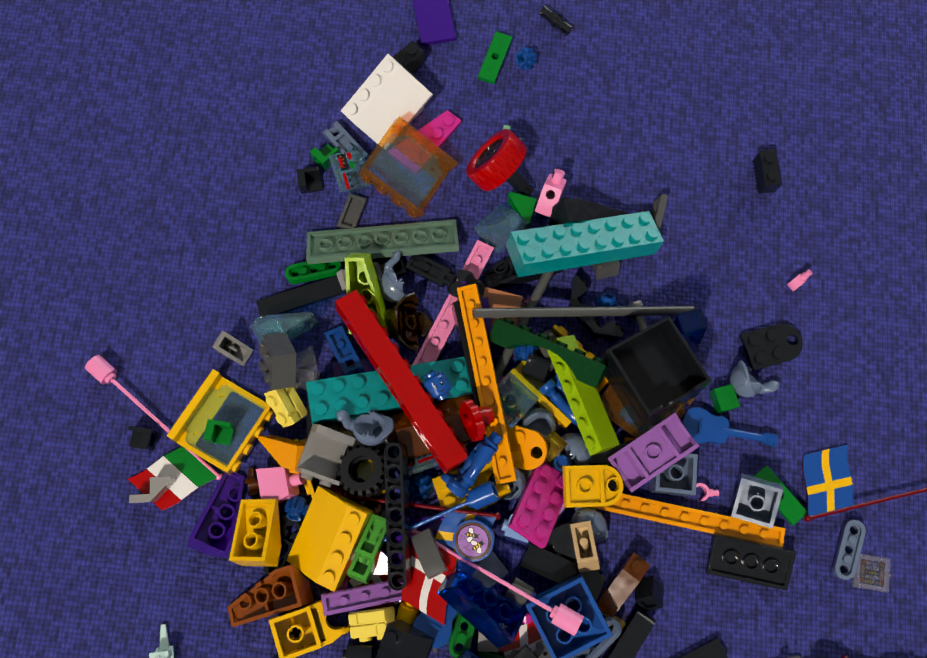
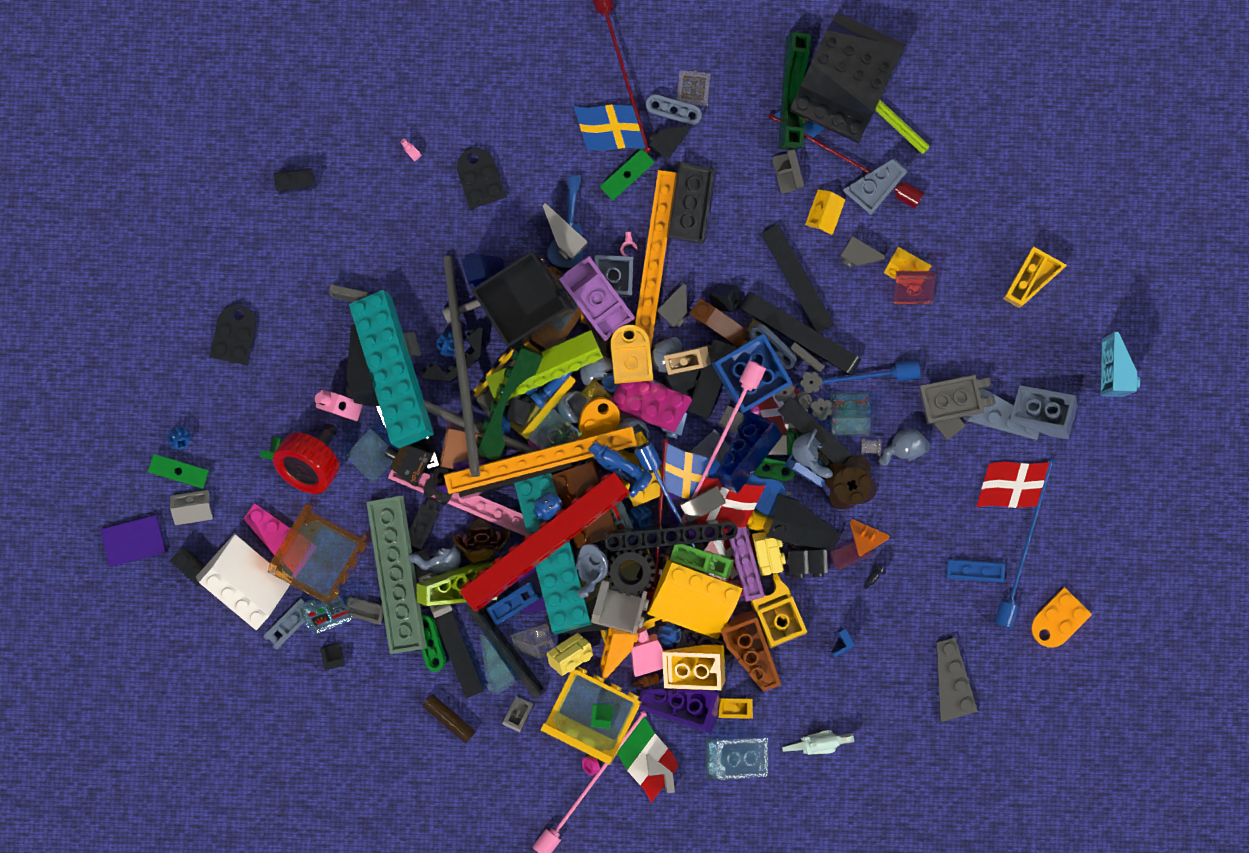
camera: 90 degrees left, 10 degrees up
(142, 438) = (611, 793): black panel -> none
(158, 572) = (736, 758): none -> clear light blue slope
(171, 418) = (590, 765): none -> dark pink tile
(210, 576) = (735, 708): none -> yellow slope
(238, 283) = (448, 718): none -> dark brown axle
(278, 361) = (531, 662): dark grey brick -> none
(304, 338) = (507, 651): none -> black tile
(322, 157) = (303, 643): green panel -> none
(461, 66) = (191, 507): none -> light grey panel
(473, 540) = (688, 463): tile -> none
(475, 419) = (578, 467): red plant -> none
(490, 257) = (408, 462): none -> torso
(522, 206) = (350, 432): green slope -> none
(556, 20) = (129, 407): black pin -> none
(618, 113) = (234, 337): none -> black plate
(639, 537) = (675, 308): none -> dark grey slope
(715, 426) = (567, 238): none -> light grey slope
(724, 399) = (537, 226): green panel -> none
(746, 384) = (521, 204): sand blue piece -> none
(756, 500) = (634, 198): sand blue brick -> none
(816, 541) = (667, 140): none -> black slope

